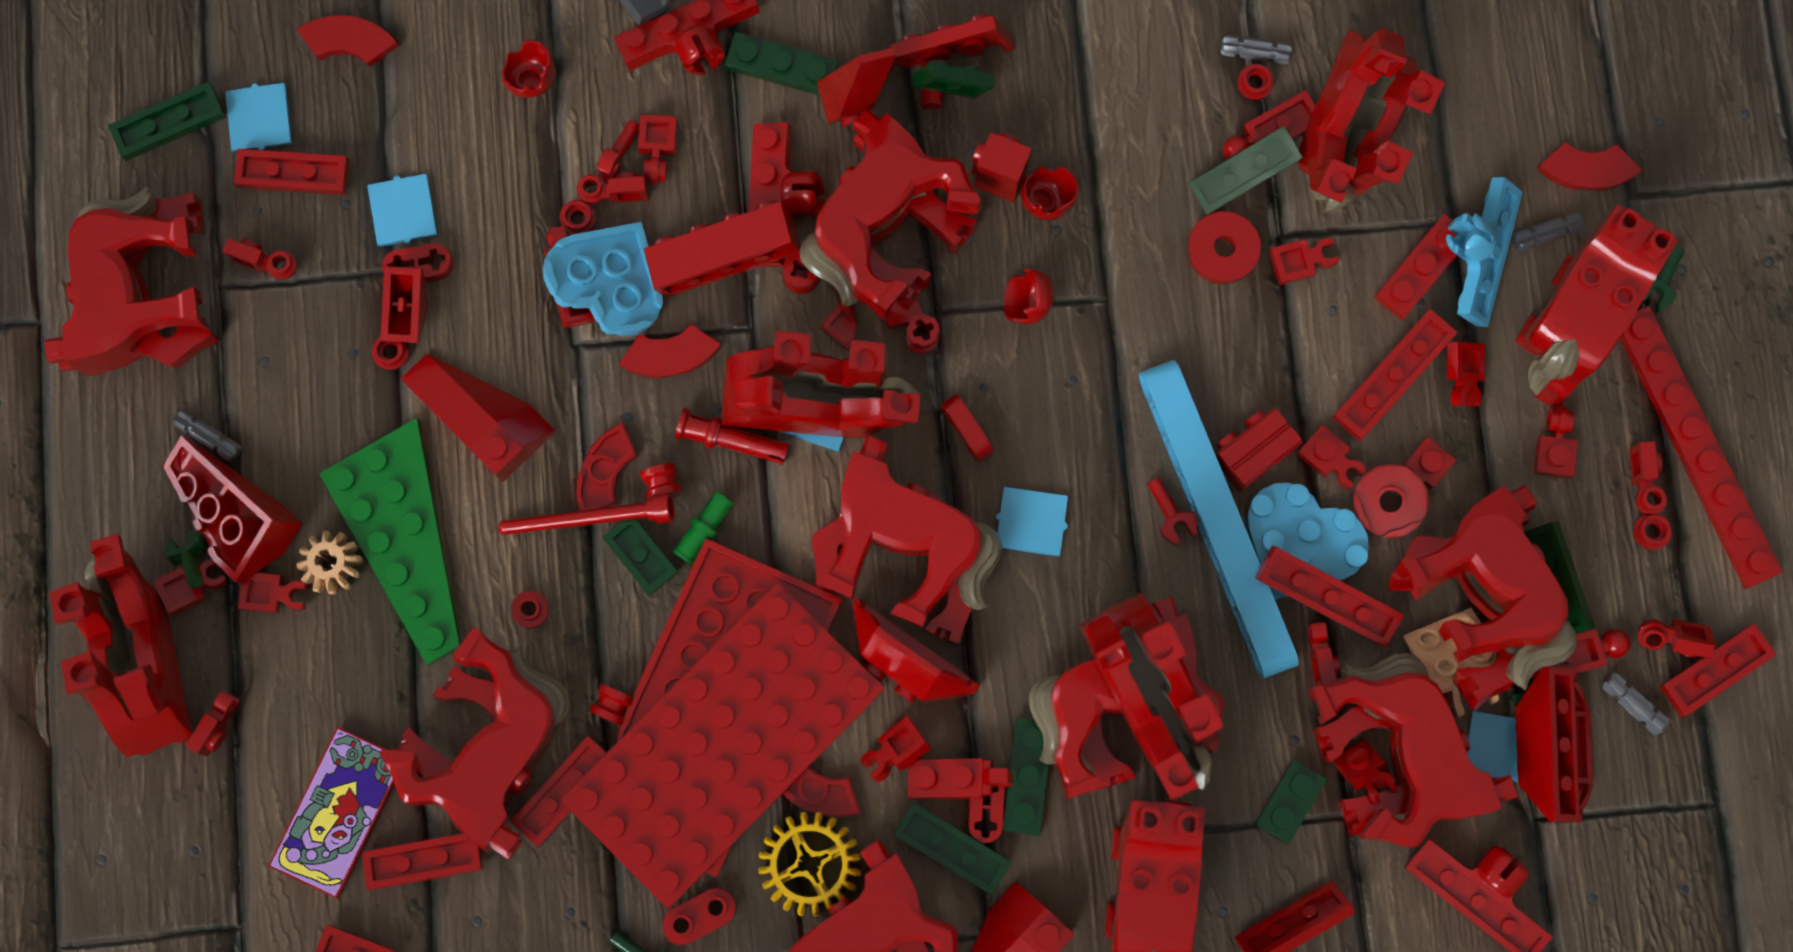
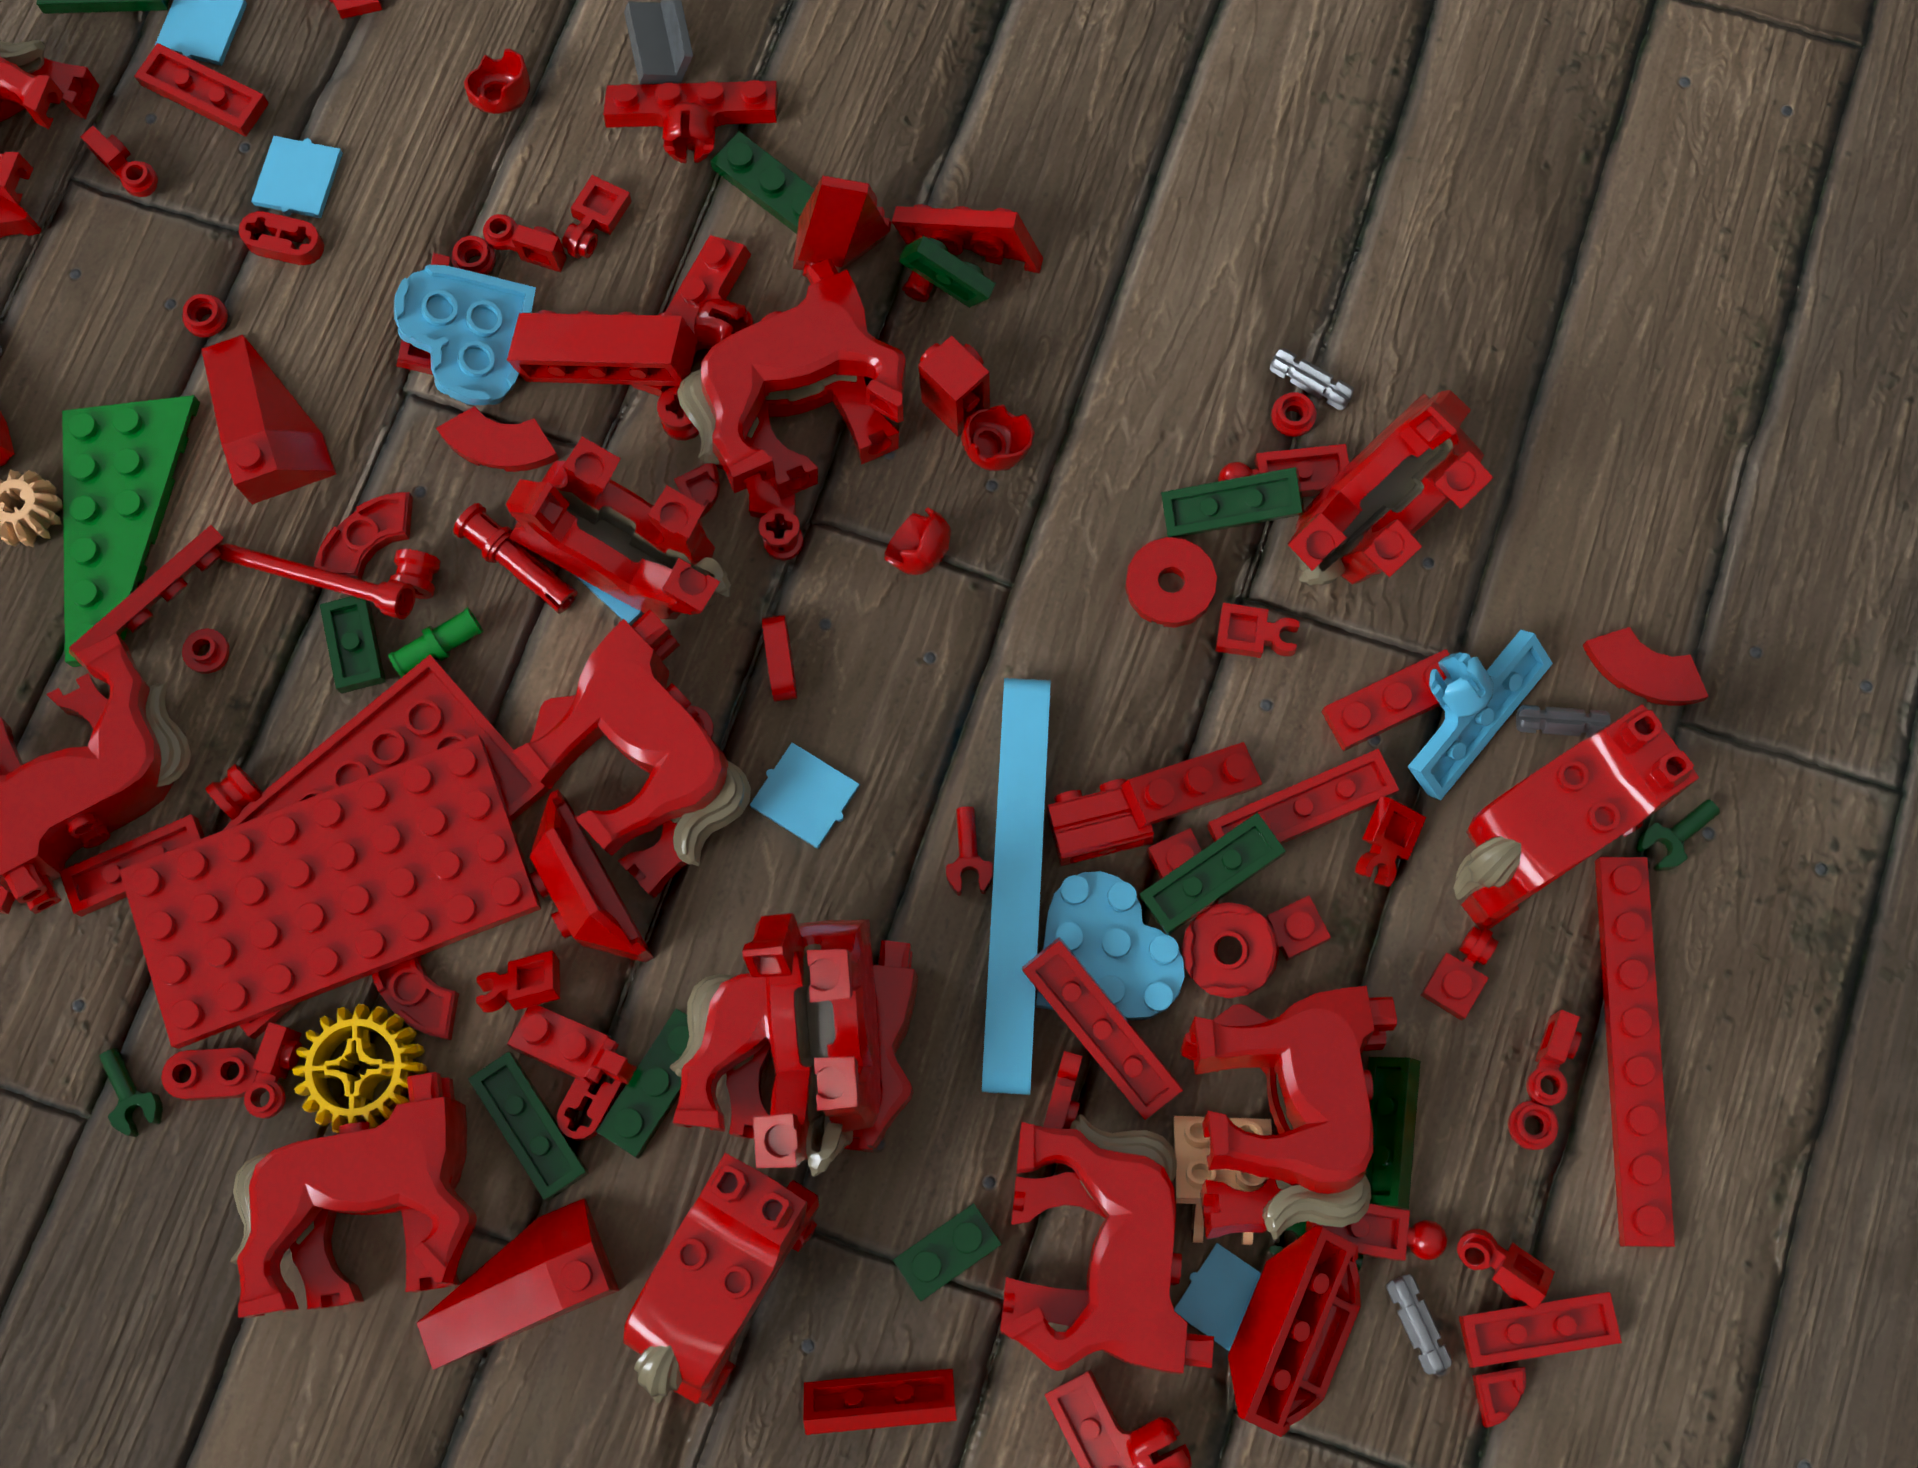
camera: 30 degrees right, 5 degrees down
(403, 304) = (238, 269): red slope -> none
(474, 574) = (164, 584): none -> red plate
(612, 158) = (537, 211): red bar -> none
(744, 879) = (272, 1062): none -> red plate
(1311, 393) = (1191, 784): none -> red plate
(1357, 451) = (1212, 873): none -> dark green plate
(1364, 767) = (1050, 1253): red plate -> none
(1708, 726) = (1499, 1393): none -> red tile

